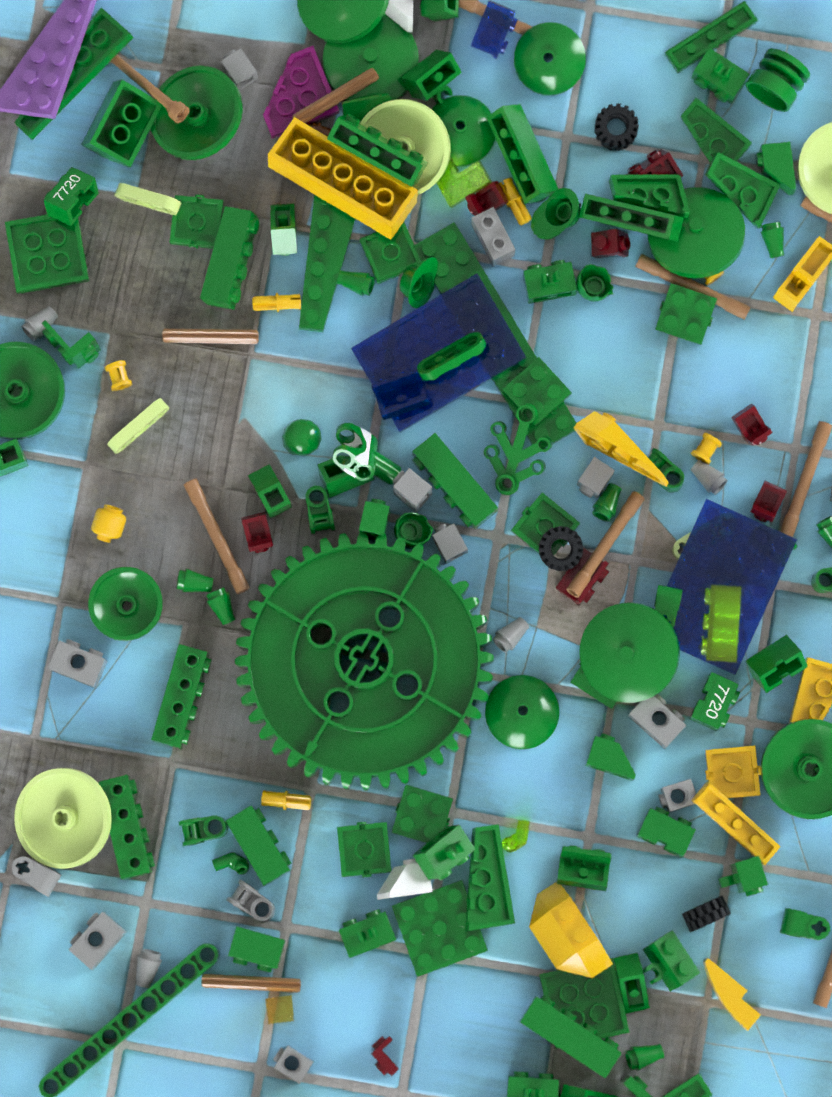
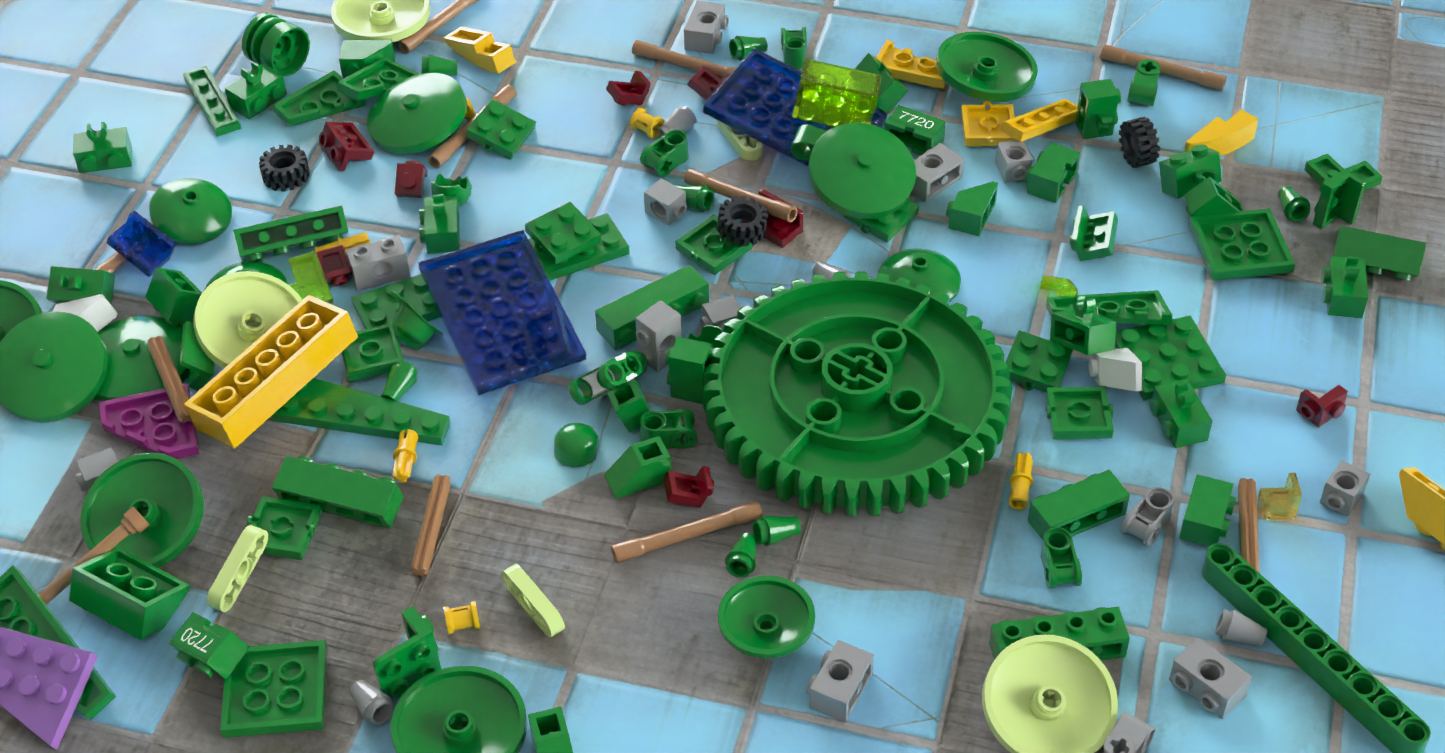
camera: 85 degrees left, 35 degrees down
(108, 523) = (656, 636): yellow head -> none
(180, 697) = (890, 574): green brick -> none
(232, 861) = (1098, 536): green arm -> none
(283, 229) = (318, 439): slope -> none
(377, 150) = (247, 326): green brick -> none
(451, 356) = (509, 284): green plate -> none
(516, 453) = (627, 254): green plant -> none
(556, 214) = (367, 208): green piece -> none
(567, 934) = (1162, 244): yellow wedge -> none
(570, 1036) = (1281, 243): green brick -> none
(607, 437) = (632, 176): yellow wedge -> none
(631, 217) = (388, 145): green brick -> none
(653, 192) = (366, 130): green wing -> none

